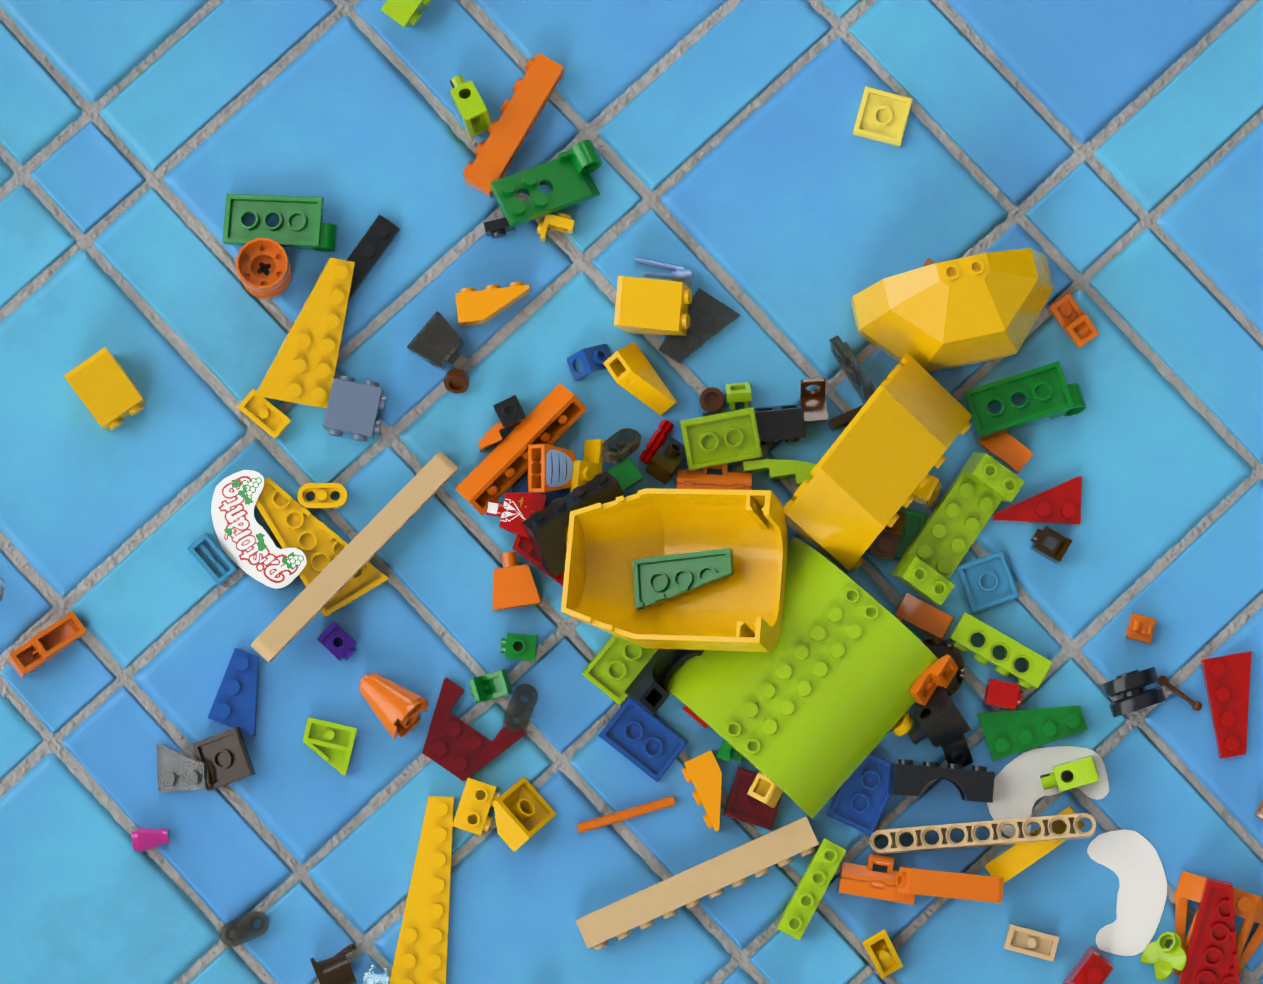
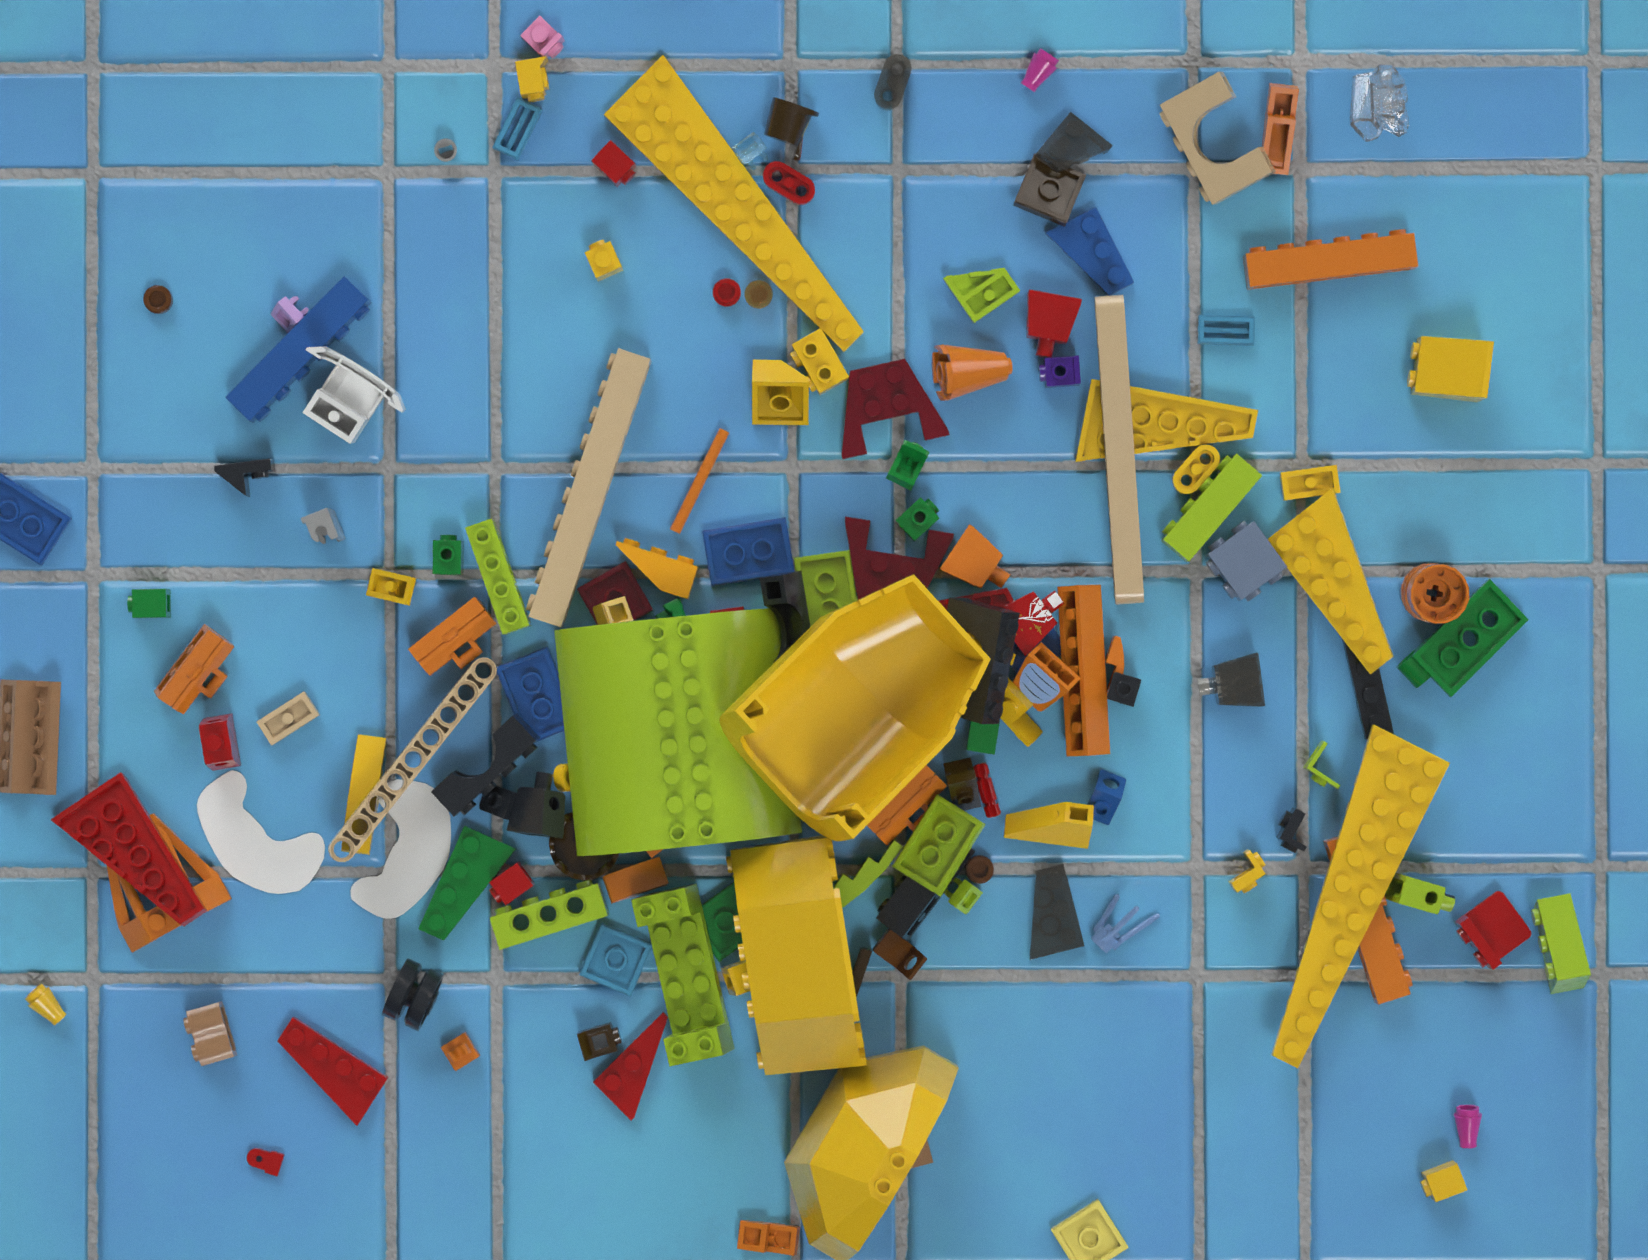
camera: 135 degrees right, 5 degrees up
(94, 714) = (1184, 116): none -> tan arch
(105, 532) = (1331, 260): none -> orange brick
(244, 538) = (1217, 372): sticker -> none
(309, 680) = (1050, 319): none -> red torso
(339, 463) = (1211, 507): none -> lime brick
(374, 936) = (789, 183): none -> red plate
(449, 38) = (1492, 929): none -> red bracket
(450, 167) = (1379, 824): none -> yellow wing
(452, 237) = (1317, 776): none -> lime bracket
(456, 381) = (1190, 669): reddish brown tile -> none
(467, 888) = (758, 294): none -> clear orange plate
(482, 305) = (1234, 750): light orange slope -> none
(484, 911) = (726, 292): none -> red plate
(520, 709) = (867, 471): clear smoke plate -> none
(566, 176) = (1280, 919): green hinge -> none
(577, 639) = (879, 569): none -> dark red wing
(620, 445) = (1010, 756): clear smoke plate -> none
(652, 306) = (1103, 890): yellow slope -> none
(673, 575) = (859, 699): green wing -> none
(827, 935) = (448, 556): none -> green brick
(852, 368) = (896, 1010): clear smoke wing -> none
(886, 542) = (725, 905): reddish brown slope -> none
(936, 675) = (577, 843): orange slope -> none
(950, 884) = (395, 693): orange slope -> none
(1007, 450) = (712, 1079): orange slope -> none
(1044, 393) = (725, 1152): green hinge -> none
(1083, 772) = (387, 891): lime torso -> none
(1165, 957) = (175, 817): lime plate -> none
(1197, 706) = (399, 1029): reddish brown hinge -> none

